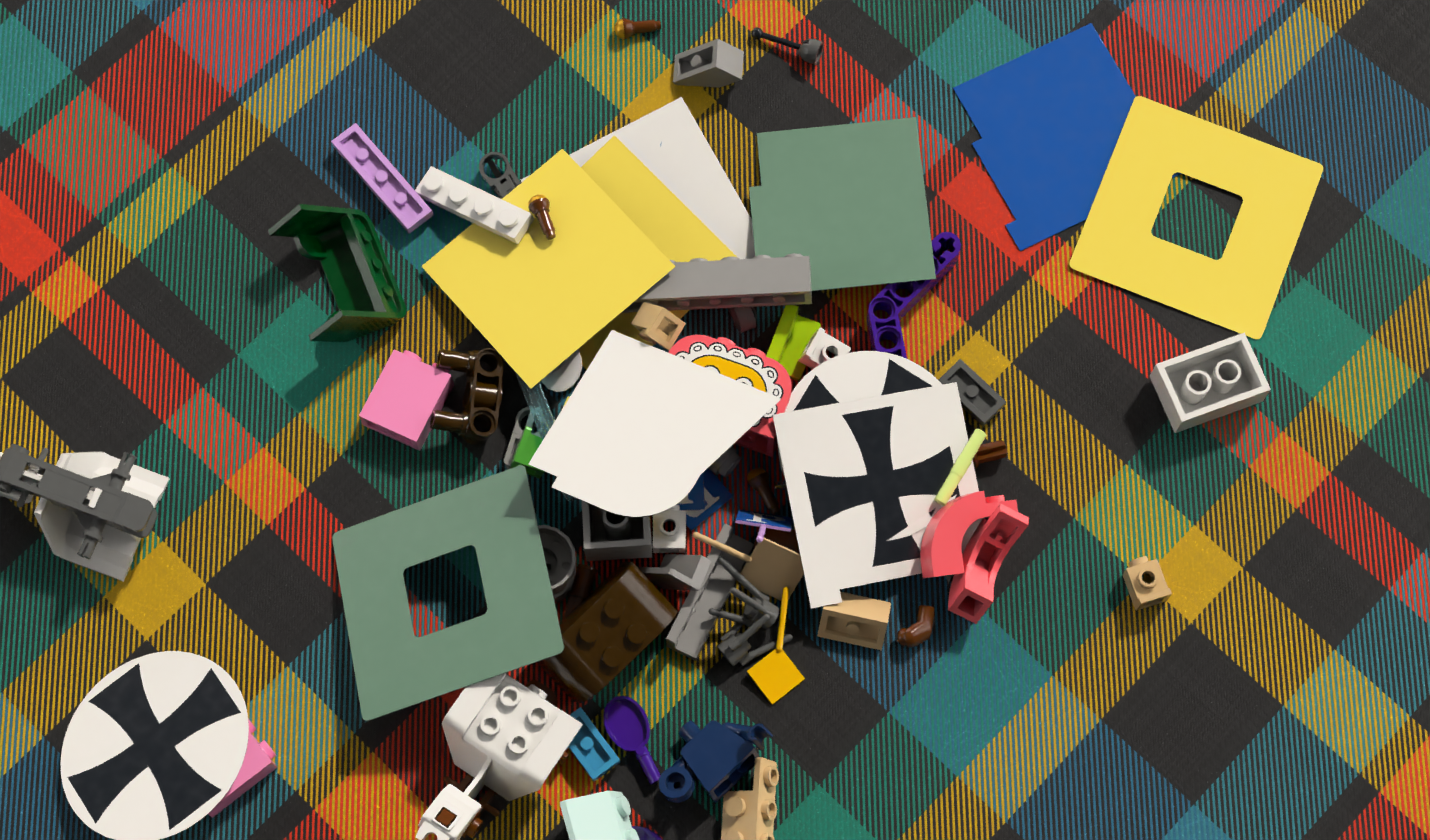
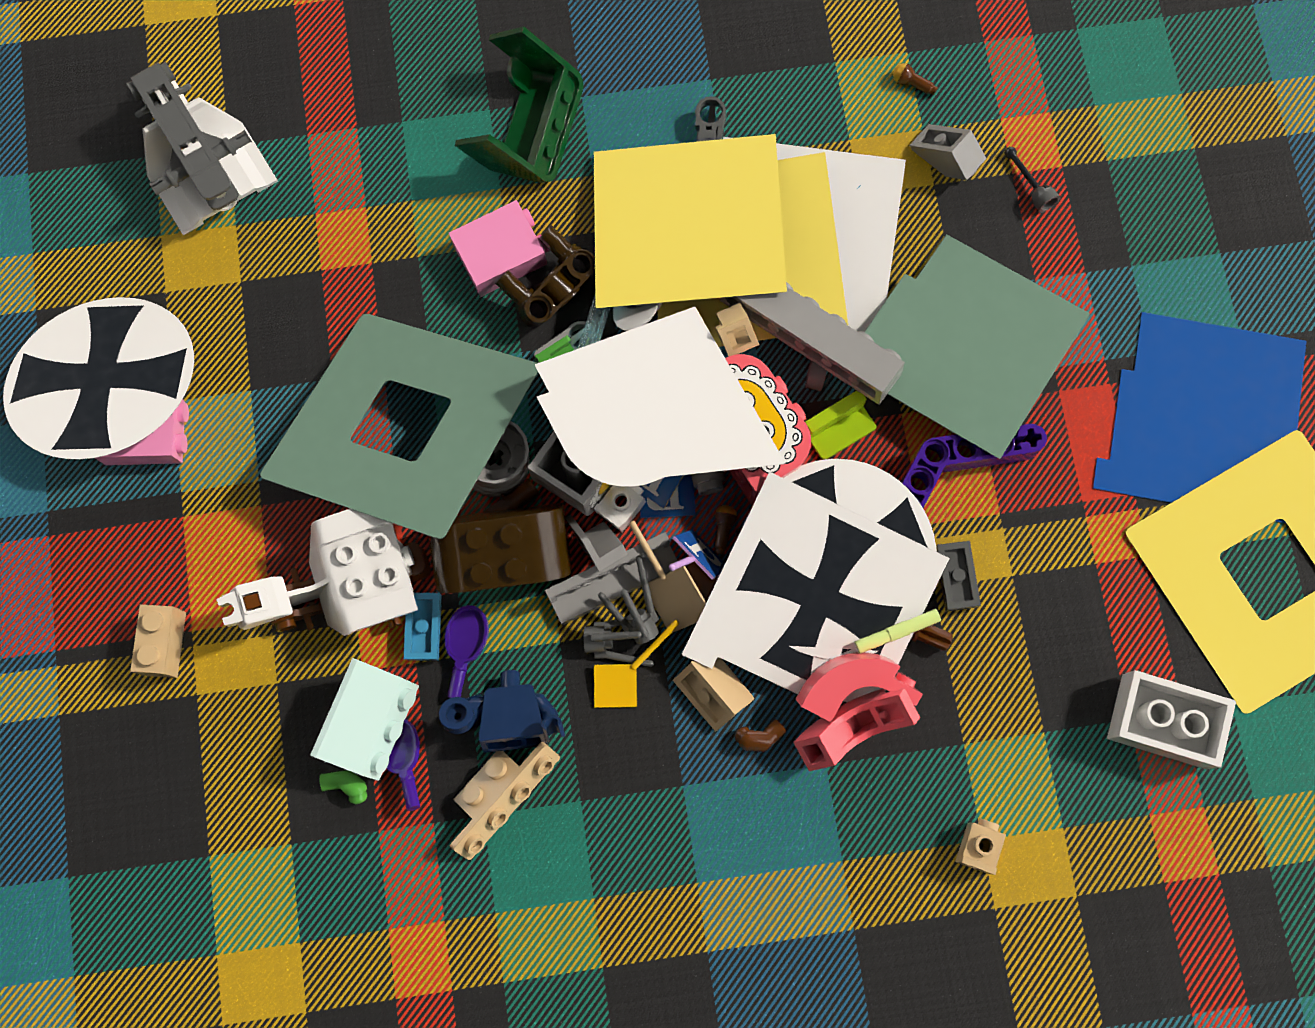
camera: 40 degrees right, 5 degrees up
(382, 178) = (617, 60): lavender plate -> none
(474, 205) = (671, 131): white plate -> none
(539, 206) = (718, 167): reddish brown piece -> none
(815, 351) = (863, 441): white brick -> none

